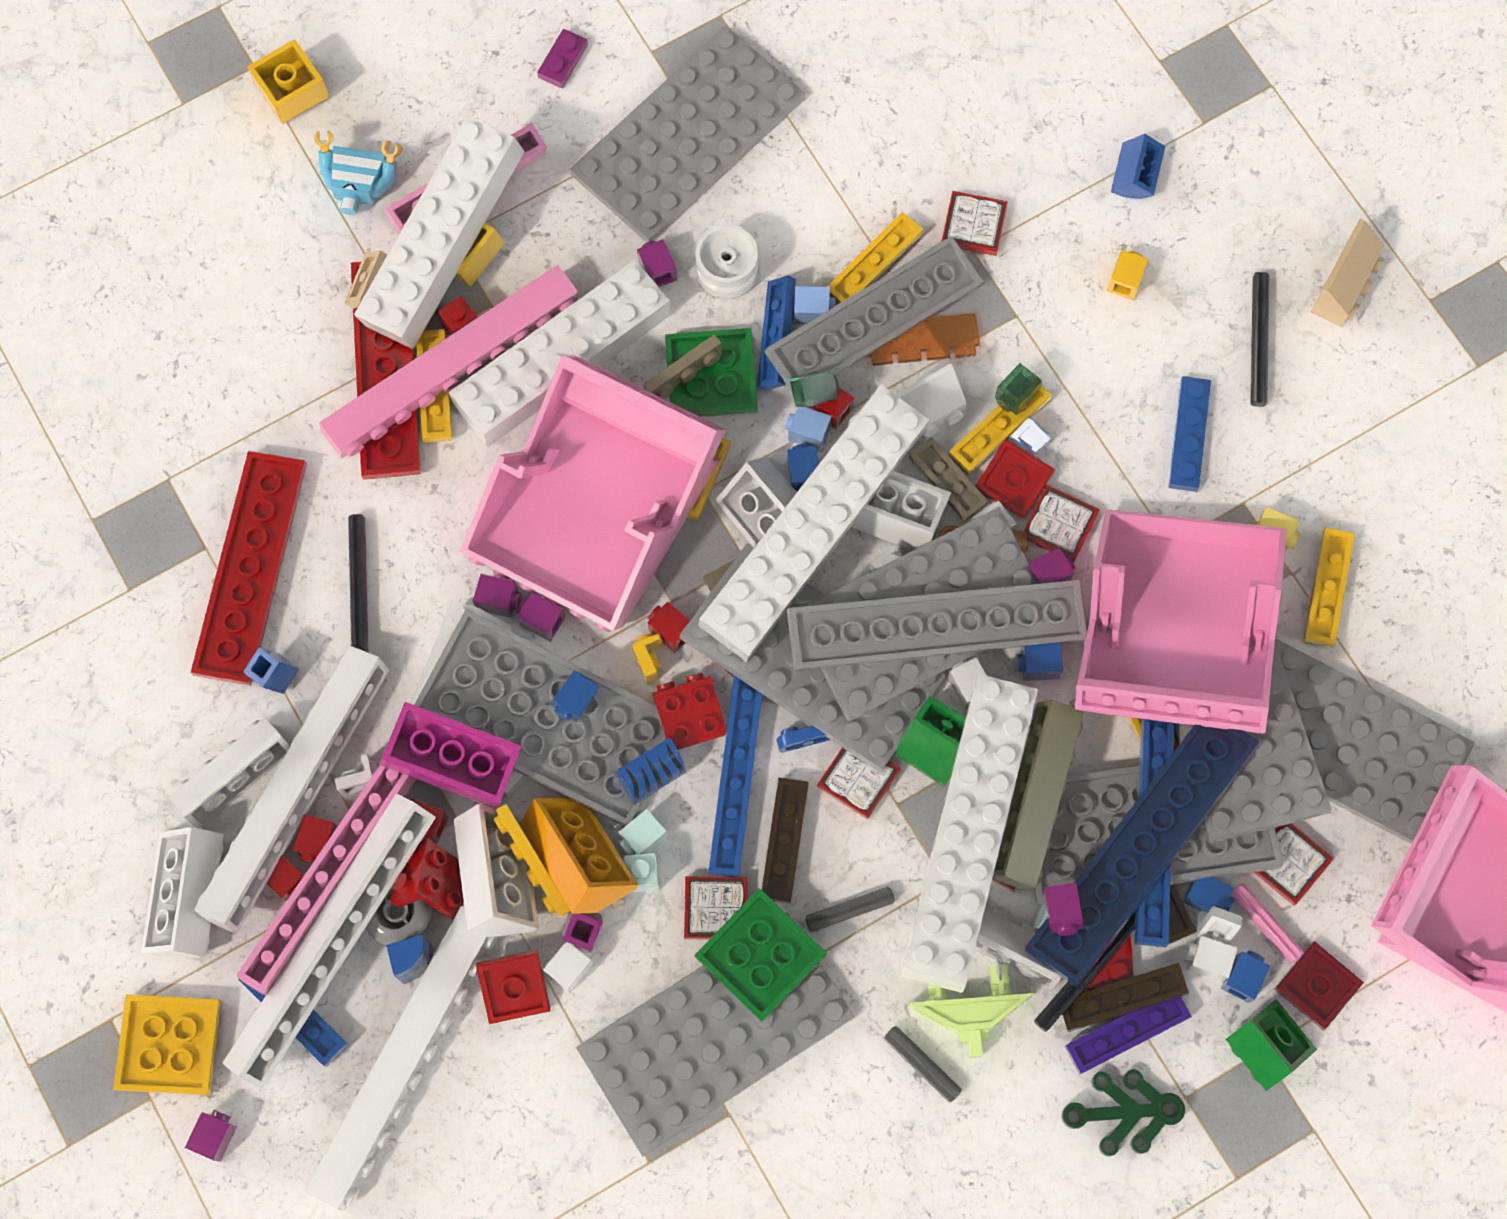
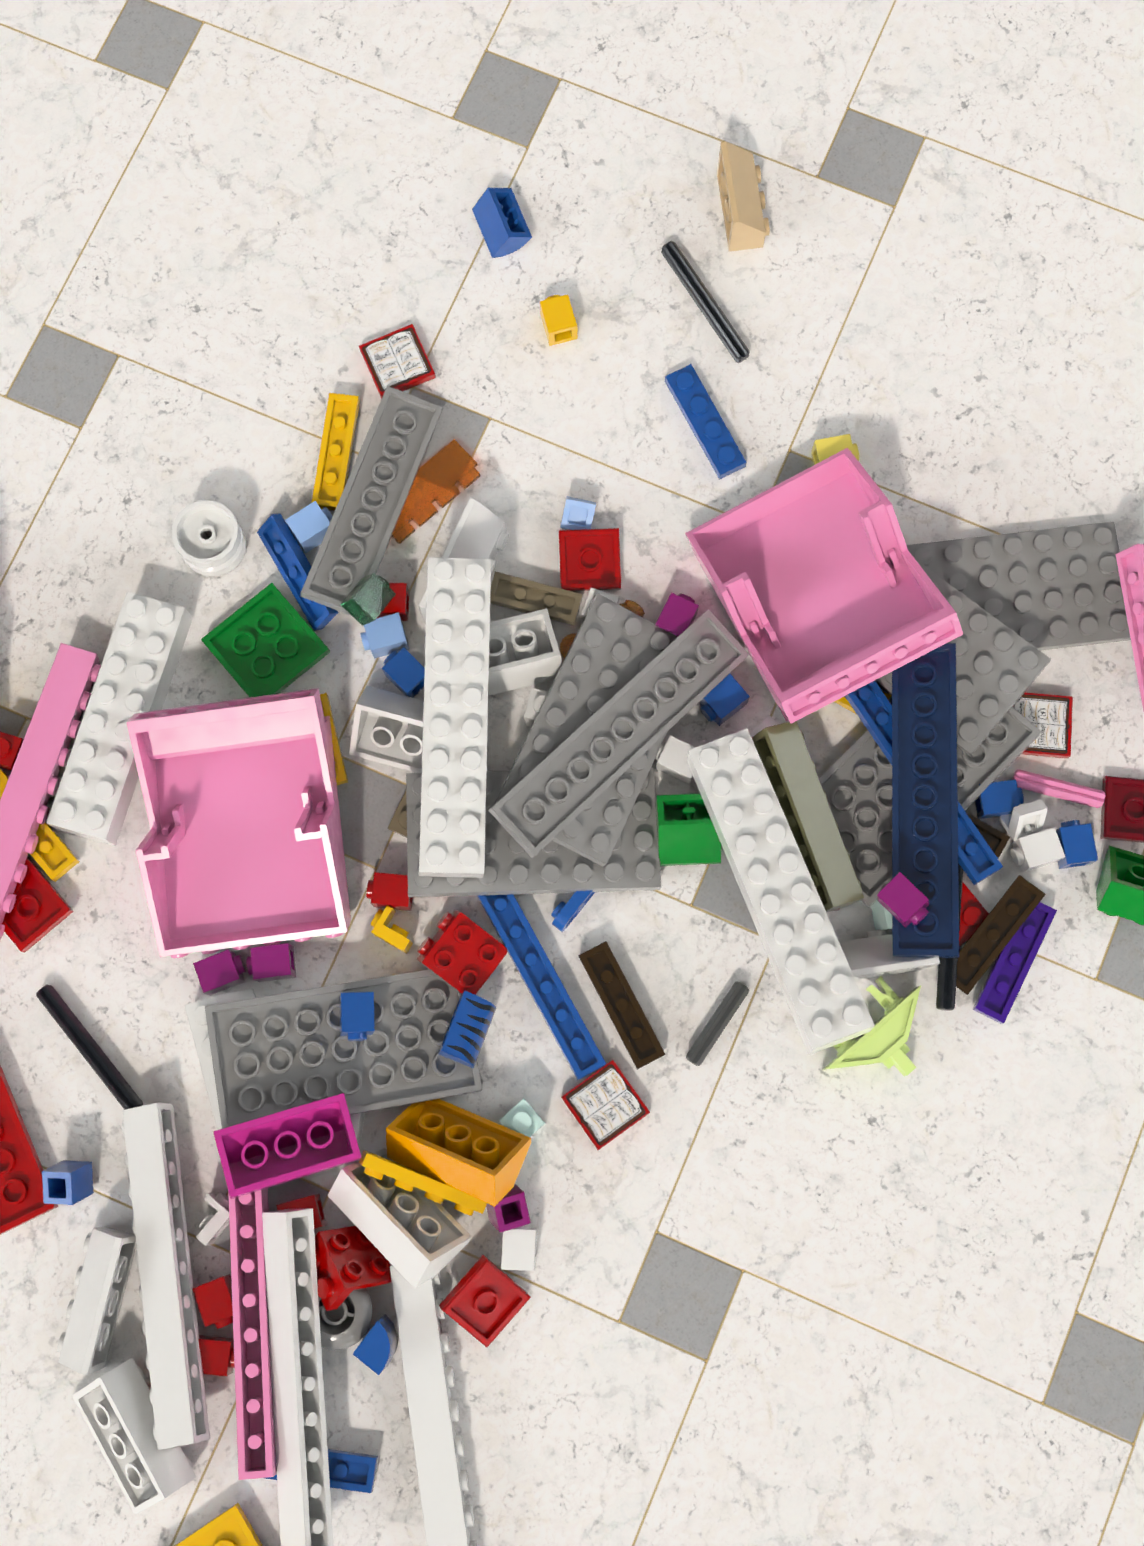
camera: 35 degrees left, 5 degrees up
(642, 834) = (499, 1089): light aqua brick -> none
(657, 262) = (148, 580): magenta brick -> none
(685, 368) = (241, 658): dark tan plate -> none
(687, 134) = (90, 449): light grey plate -> none
(701, 1049) = (682, 1213): light grey plate -> none
(760, 955) = (675, 1119): green plate -> none
(857, 783) = (645, 912): tile -> none
(922, 1064) = (870, 1109): dark grey axle -> none
(992, 432) = (544, 521): yellow plate -> none
(1017, 389) = (540, 481): clear green brick -> none
(1060, 522) = (654, 570): tile -> none
(1128, 1111) = (1062, 1025): dark green plant -> none
(1329, 587) = (909, 473): yellow plate -> none

